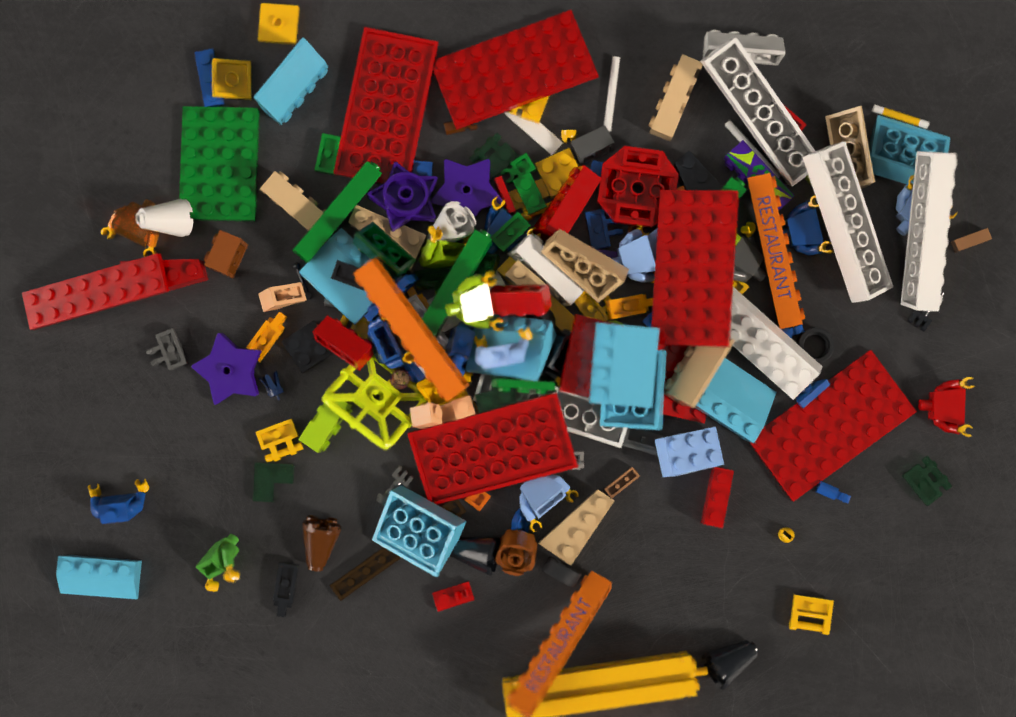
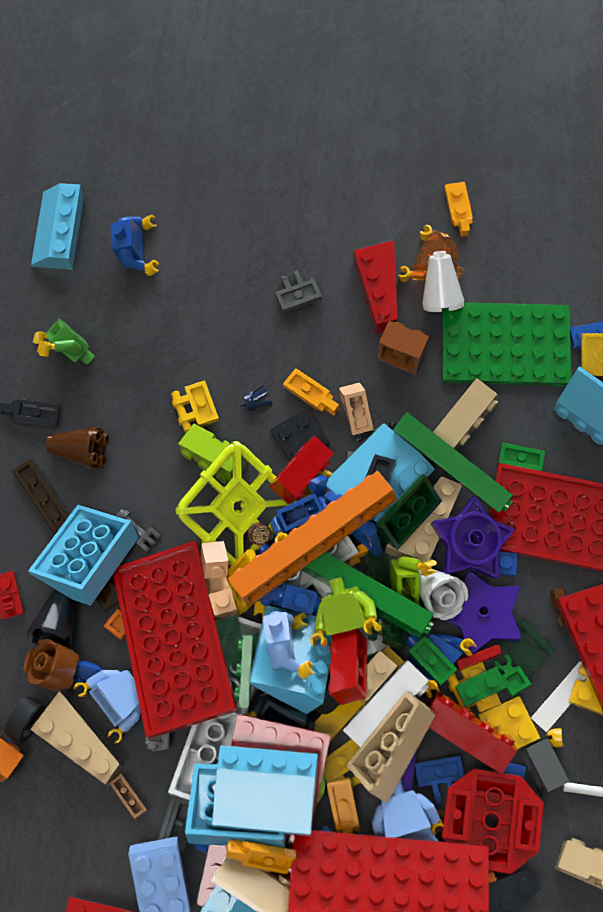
camera: 90 degrees right, 15 degrees down
(81, 202) = (459, 206): none -> light orange hinge
(95, 291) = (361, 219): red plate -> none
(241, 365) = (274, 352): dark purple plate -> none
(266, 475) = (156, 394): clear green plate -> none
(358, 327) = (318, 485): none -> blue tile
(673, 369) = (261, 856): none -> light orange hinge

